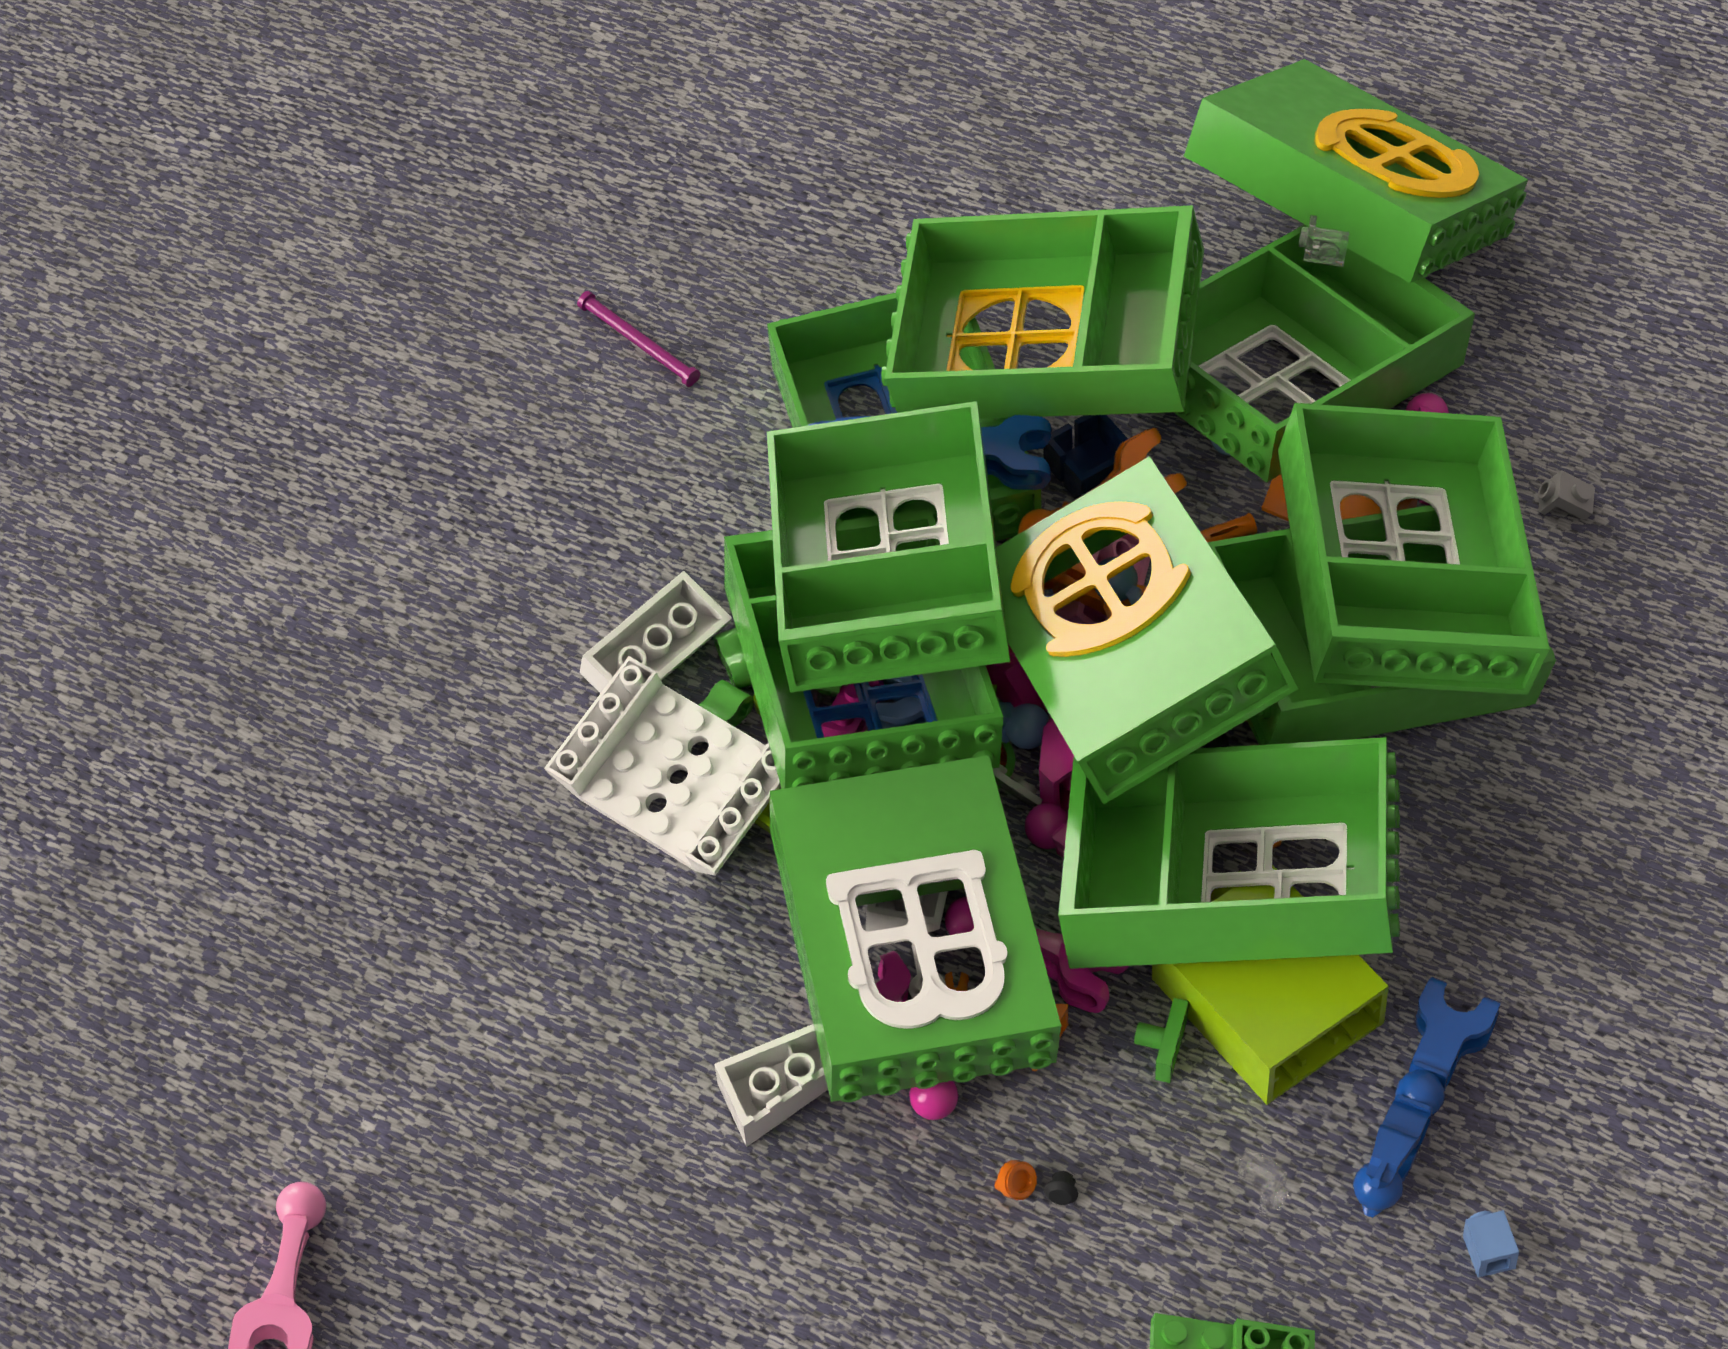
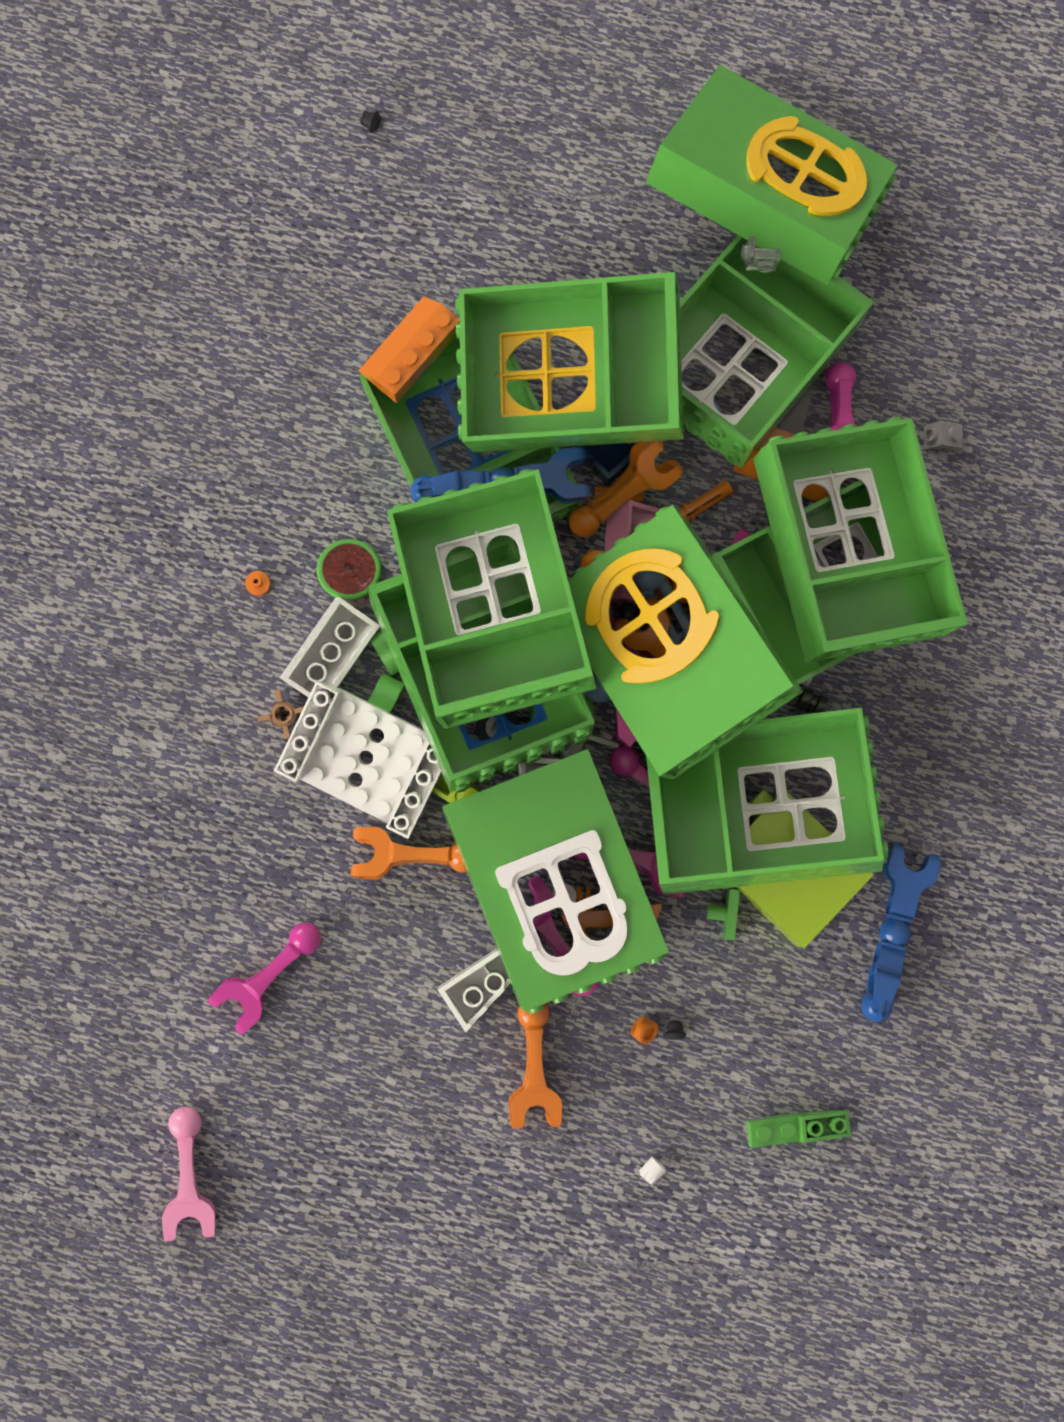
camera: 20 degrees left, 30 degrees up
(444, 1044) = (303, 940): none -> dark pink piece
(570, 705) = (277, 712): none -> medium nougat brick
(577, 564) = (263, 585): none -> orange tile
(588, 301) = (215, 346): magenta bar -> none
(690, 900) = (392, 854): none -> orange piece
(699, 555) = (335, 560): none -> clear red wheel
(832, 1235) = (534, 1086): none -> orange piece
(841, 300) = (411, 348): none -> orange slope
(845, 92) = (370, 120): none -> black piece
(1266, 1176) = (800, 1001): clear bracket -> none
(1490, 1243) = (949, 1031): medium blue brick -> none

